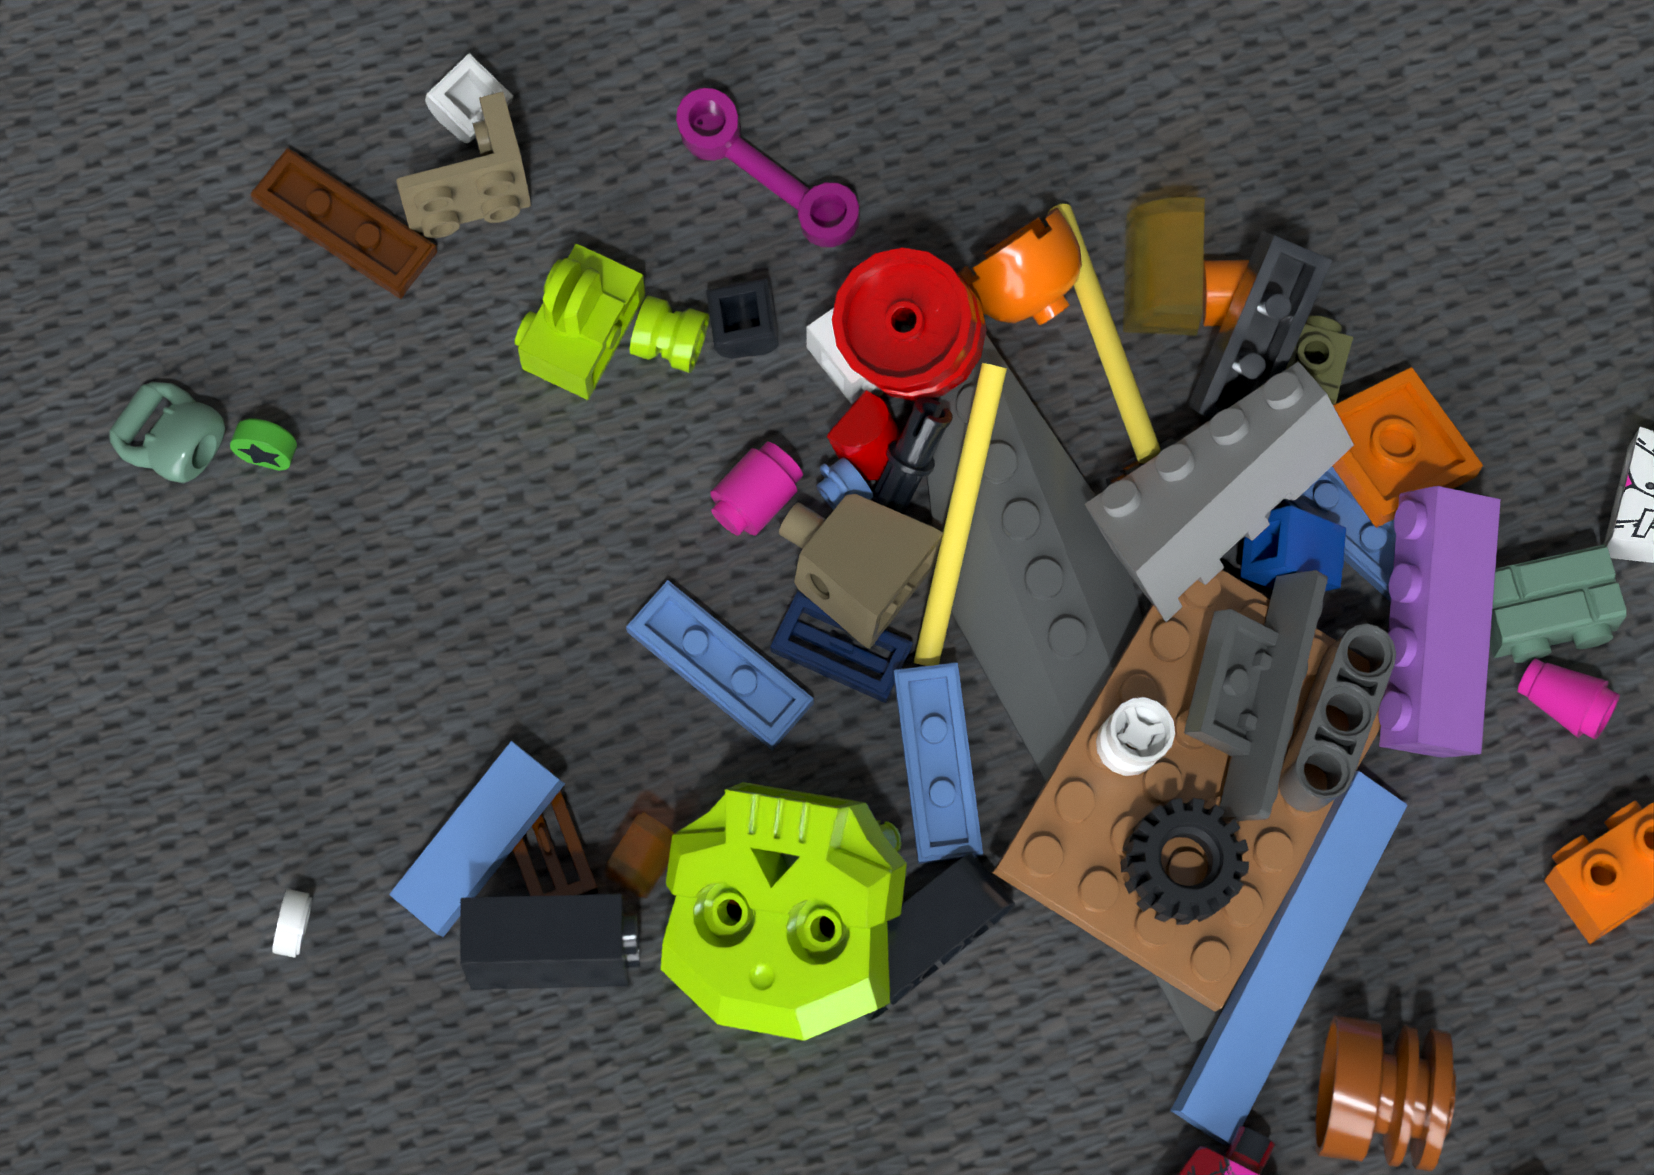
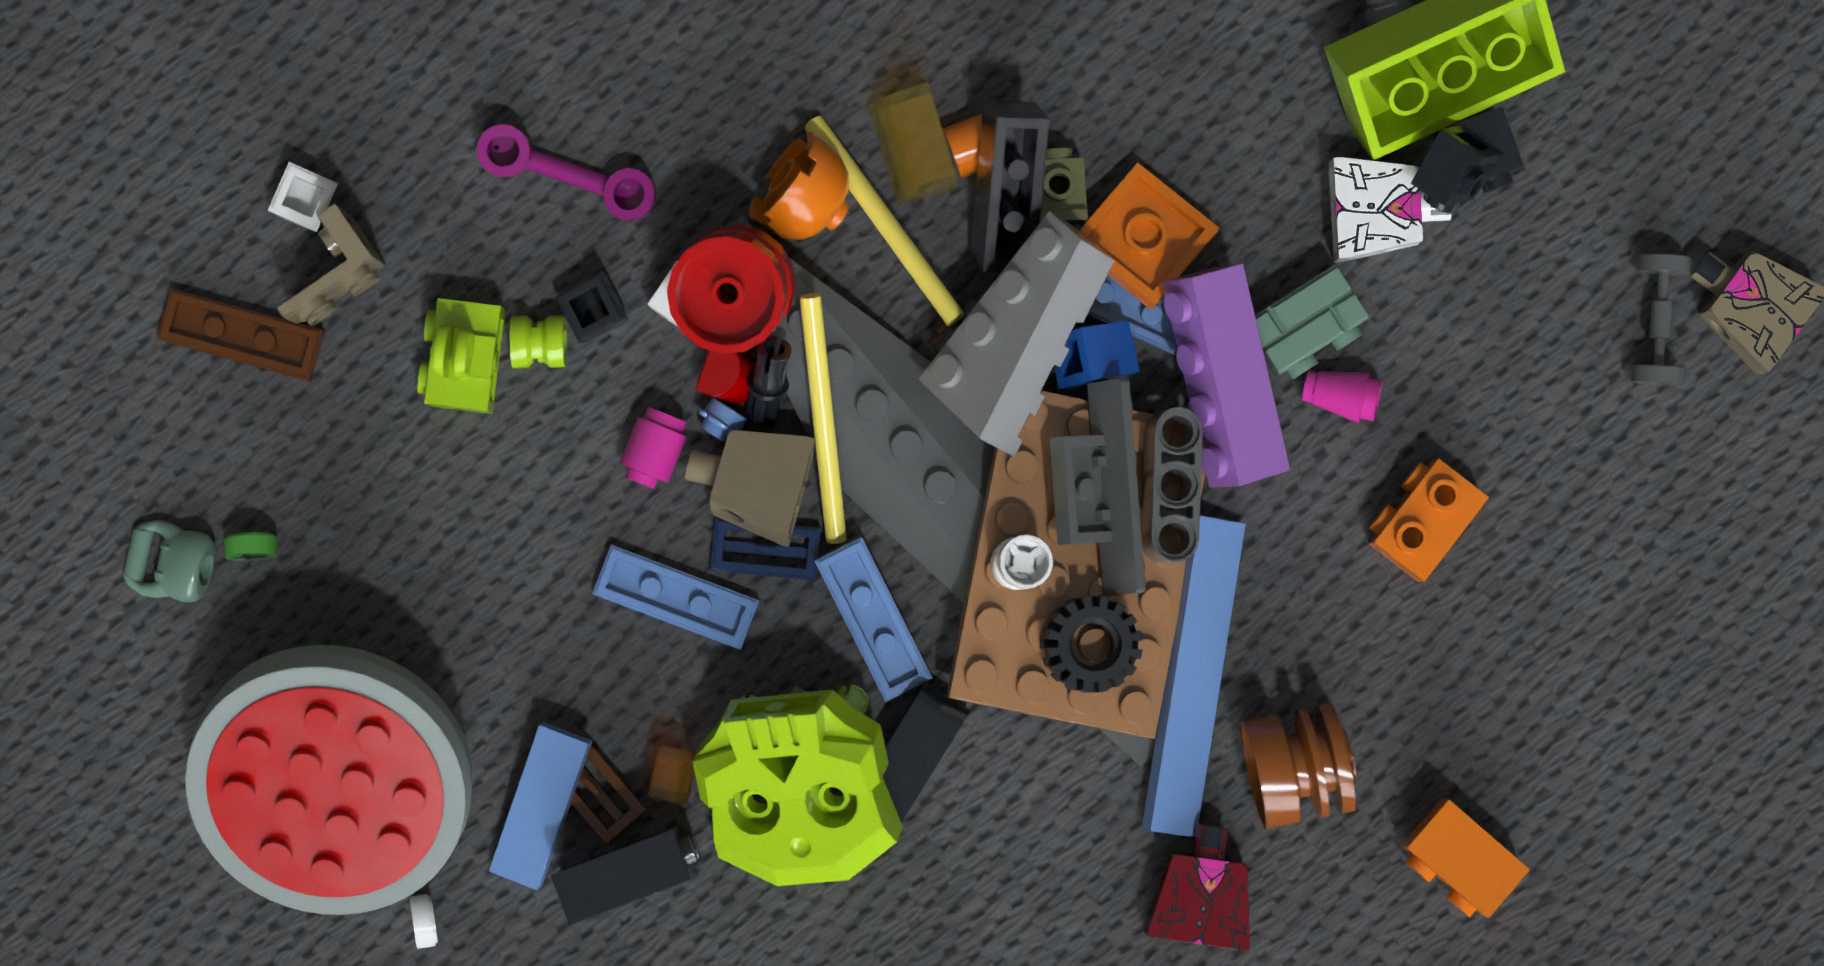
camera: 20 degrees left, 15 degrees up
(248, 711) = (329, 780): none -> wheel

